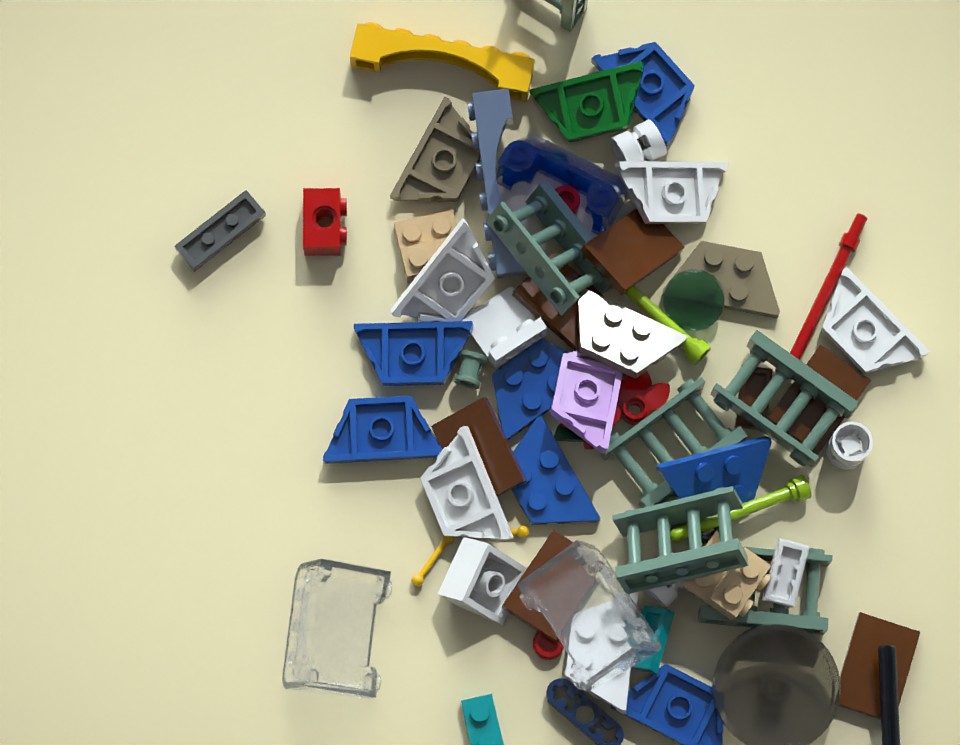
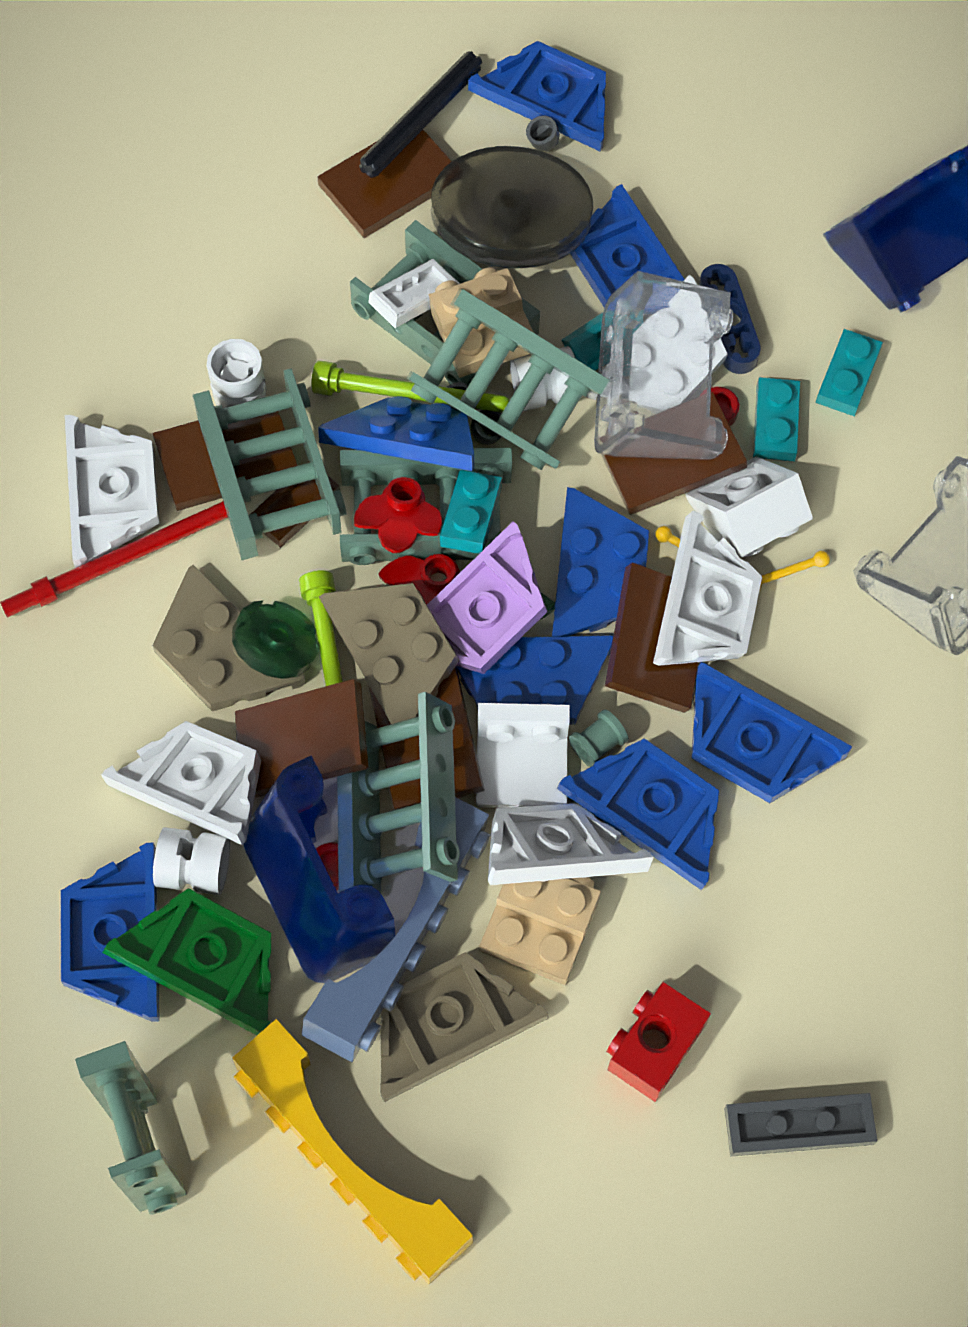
camera: 145 degrees left, 10 degrees down
(506, 660) = (776, 419): none -> teal plate
(639, 446) = (471, 512): none -> teal plate
(675, 411) = (399, 515): none -> red plate

